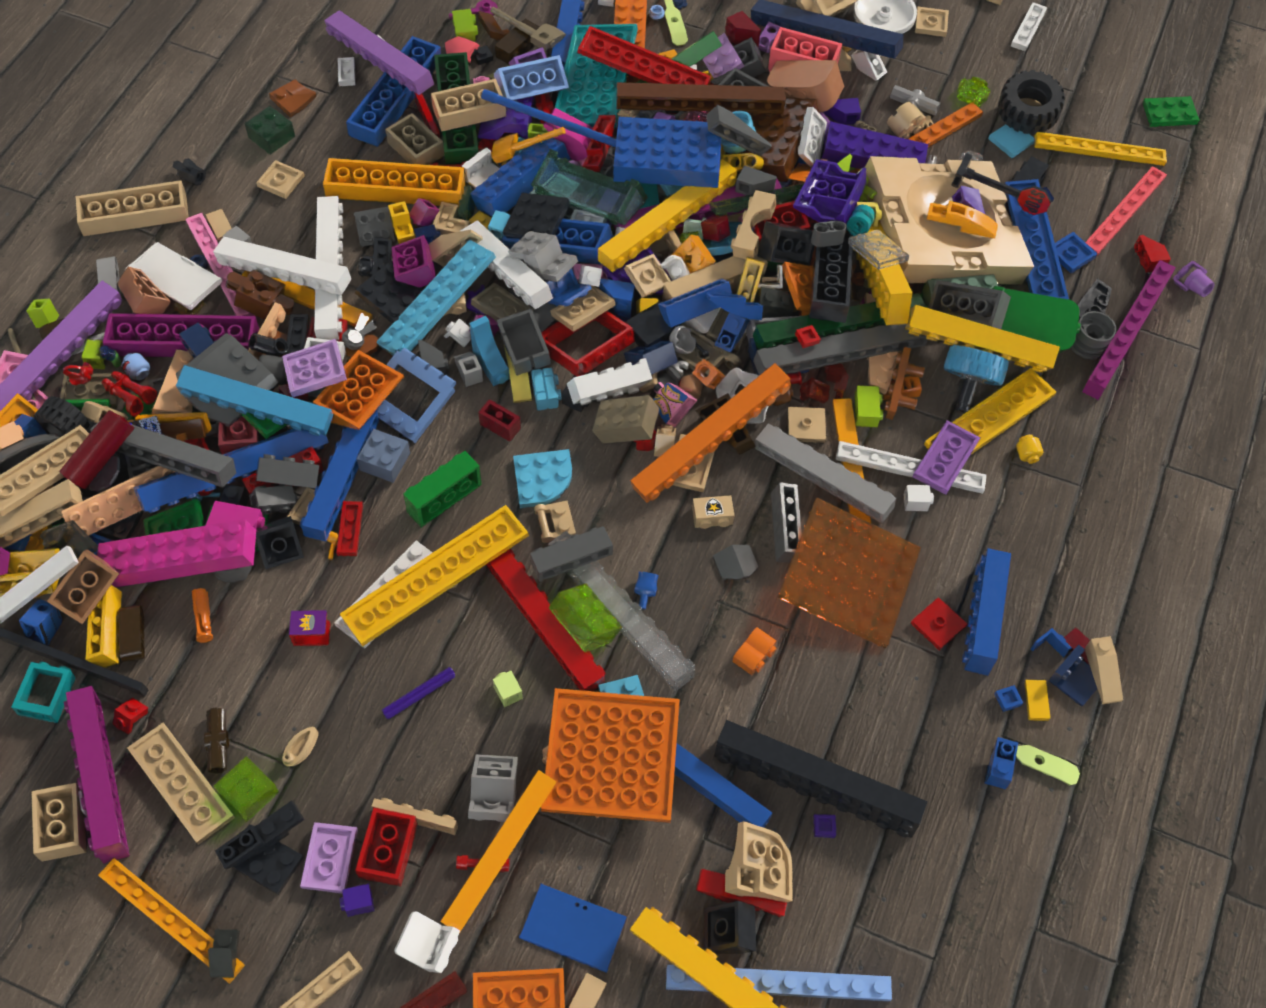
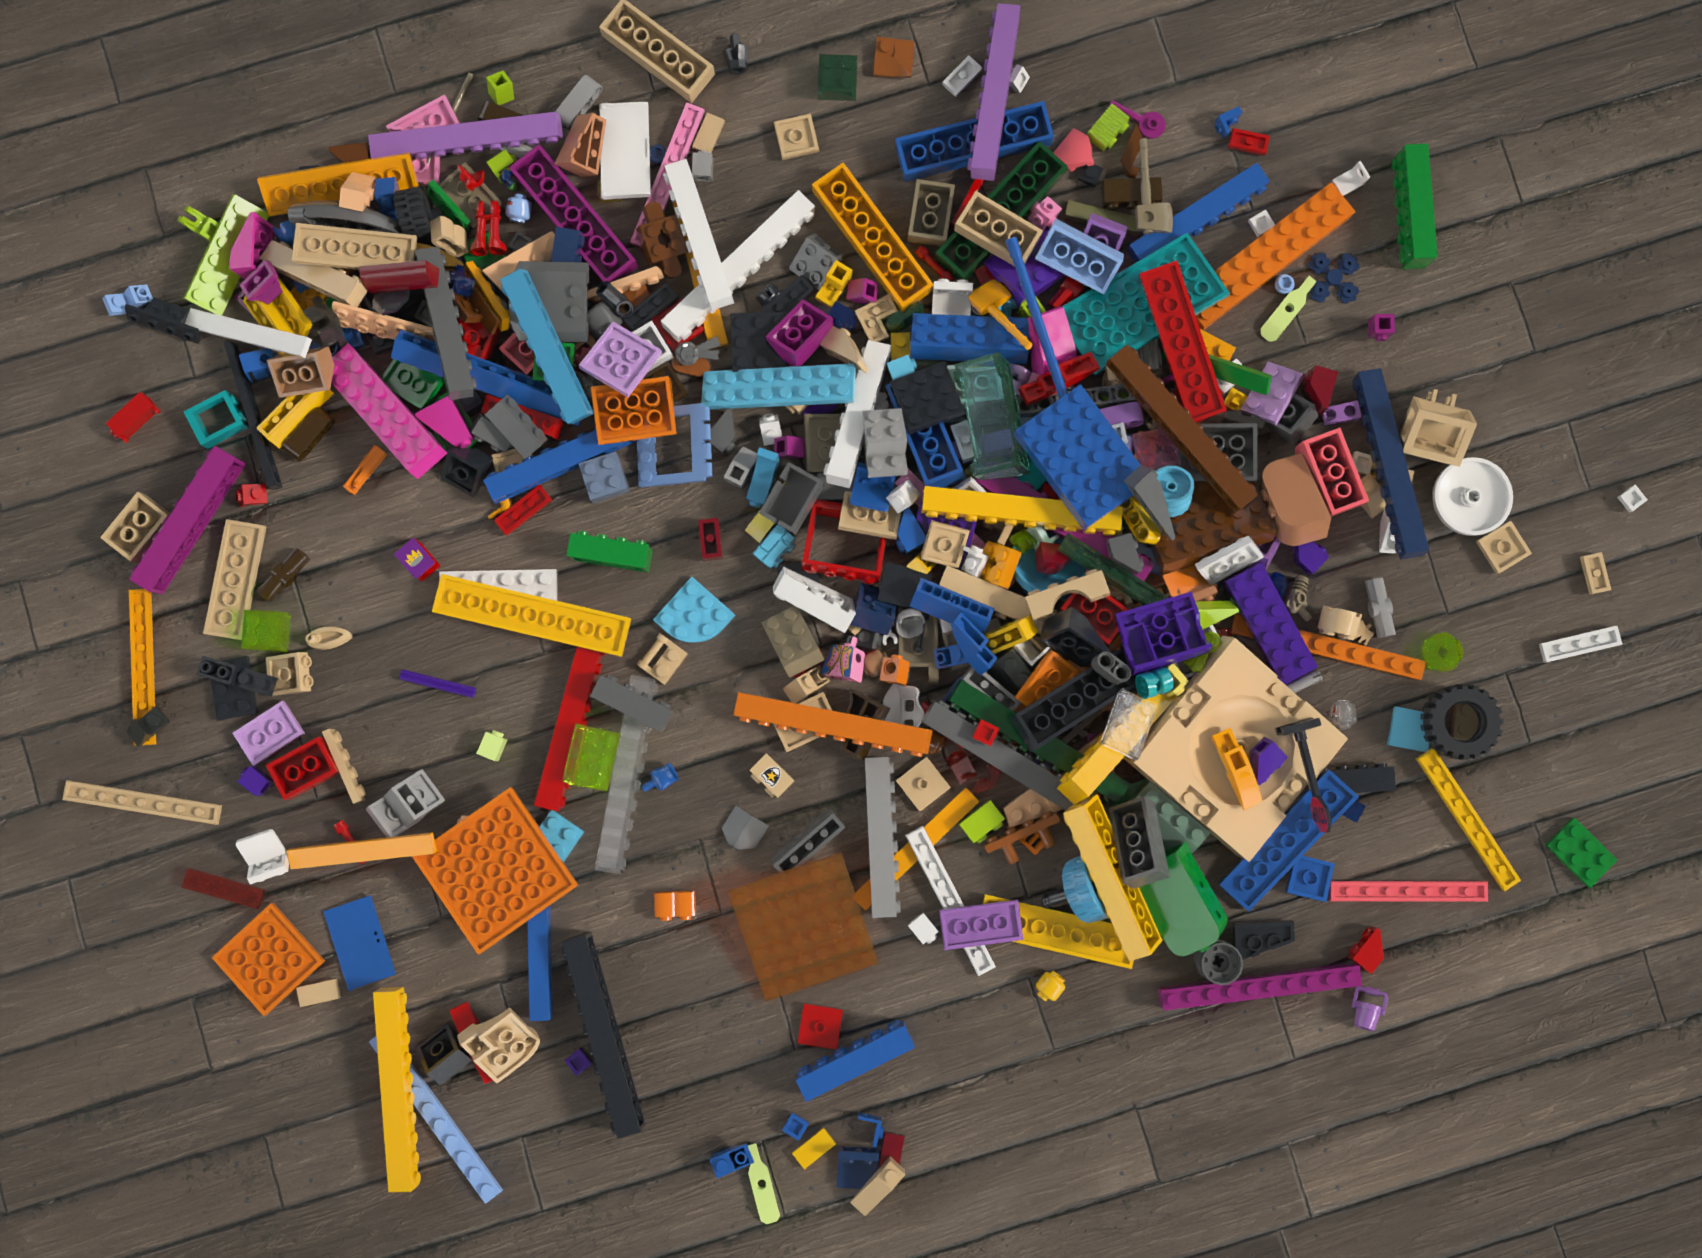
camera: 55 degrees right, 25 degrees up
(306, 795) = (291, 672): none -> tan plate

